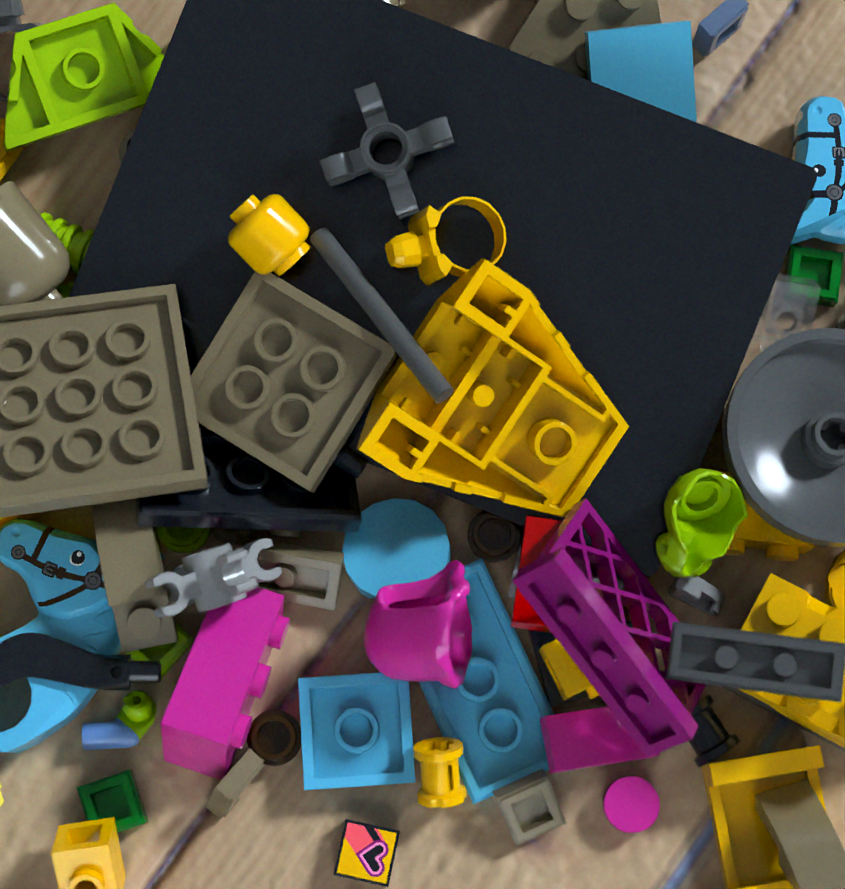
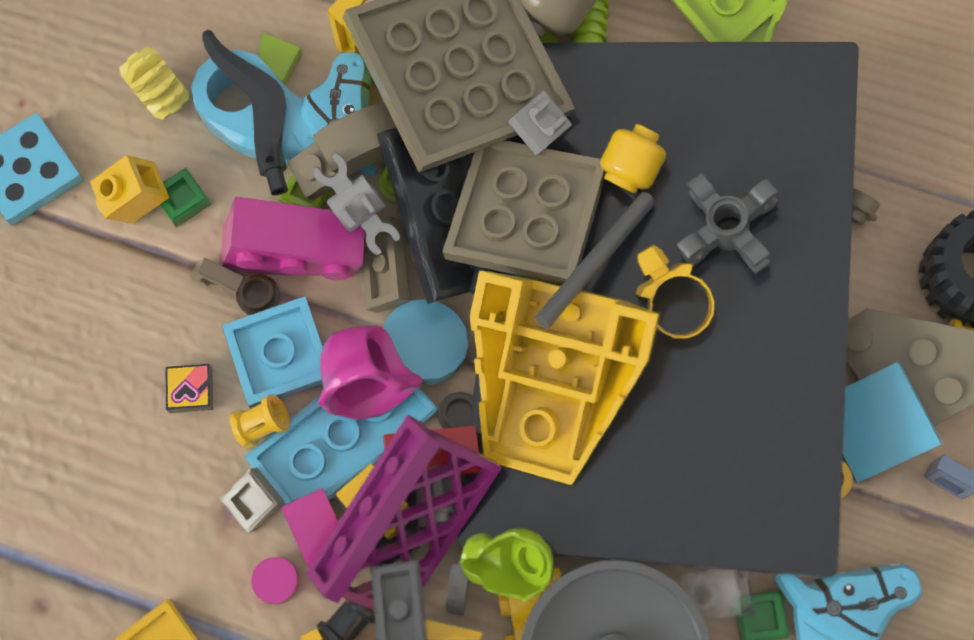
camera: 75 degrees right, 5 degrees down
(126, 728) = (234, 185): arm -> none
(187, 327) = (539, 123): none -> light grey tile

